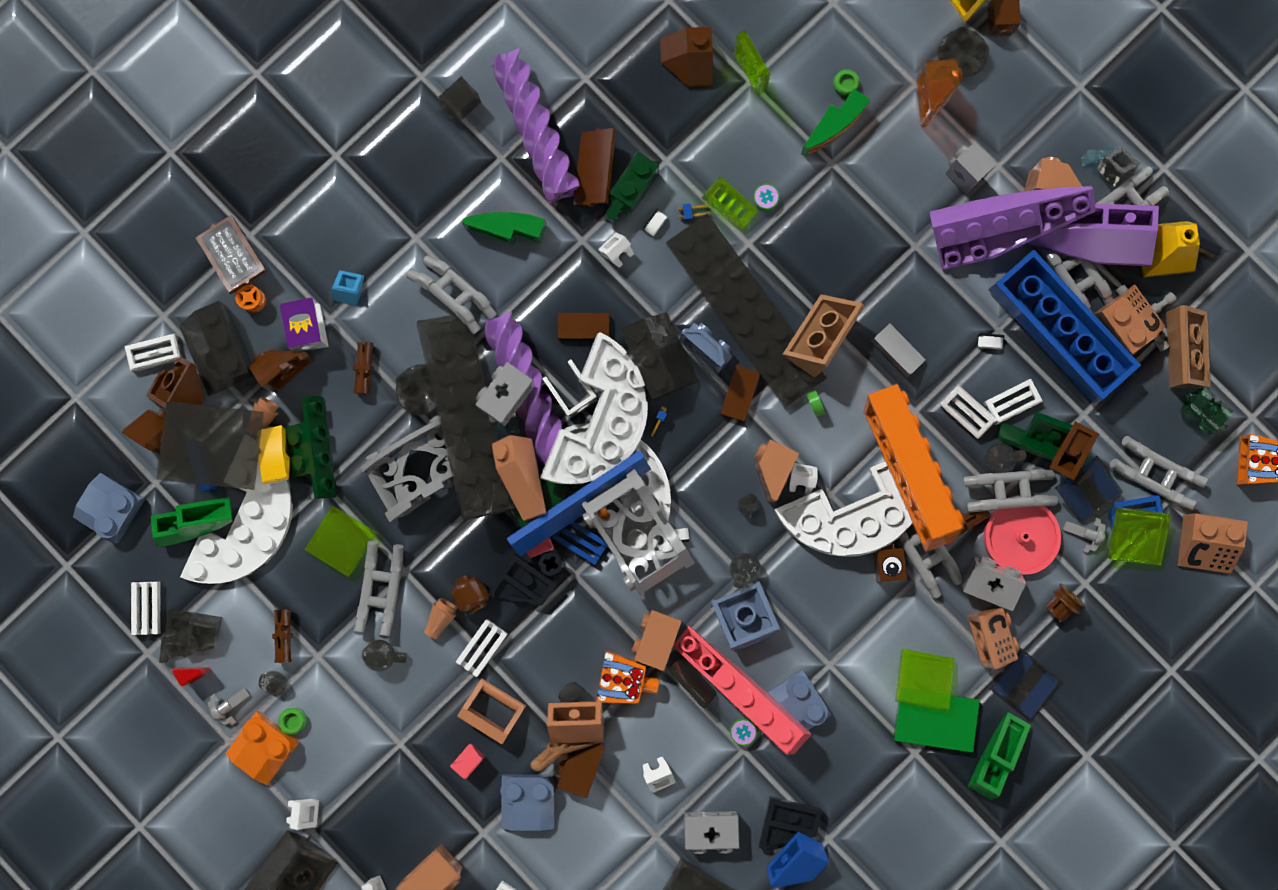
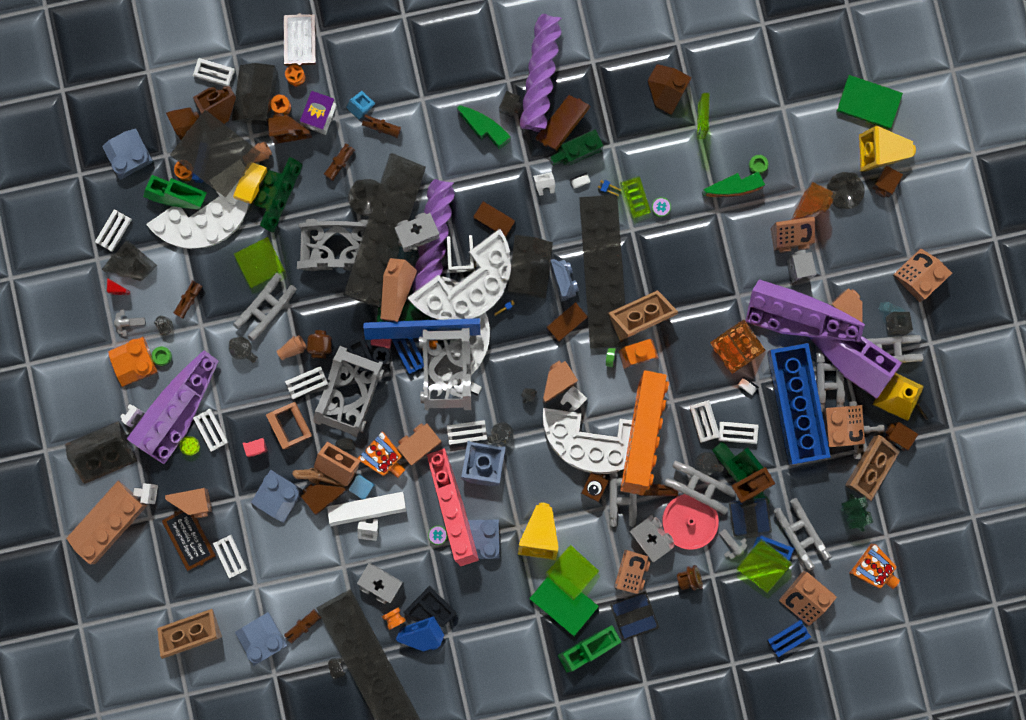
camera: 30 degrees right, 0 degrees up
(181, 490) = (179, 170): none -> orange wheel
(260, 344) = (282, 108): none -> orange wheel
(344, 777) = (174, 409): none -> medium lavender wedge
(387, 297) = (381, 126): none -> reddish brown pin
(389, 806) = (189, 445): none -> clear neon green tile
(396, 780) = (203, 416): none -> white tile
(457, 304) = (422, 157): light grey piece -> none
(459, 99) = (503, 27): clear smoke brick -> none
(510, 602) = (327, 407): none -> light grey fence
(521, 183) = (510, 104): none -> clear smoke plate
(620, 730) = (361, 486): none -> dark azure slope
(642, 753) = (366, 509): none -> white tile
(692, 681) = (425, 484): clear smoke slope -> none
(721, 577) = (482, 430): none -> white tile
(752, 862) = (393, 618): none -> orange wheel
(845, 380) = (638, 353): none -> orange torso
(862, 658) = (540, 534): none -> yellow slope
(898, 350) = (685, 355): light grey slope -> none
(937, 136) = (793, 234): none -> nougat slope
(952, 303) = (737, 346): none -> clear orange slope
(1109, 95) = (922, 274): none -> nougat slope
(1200, 292) = (900, 436): none -> reddish brown brick
(1223, 613) = (803, 630): none -> blue tile

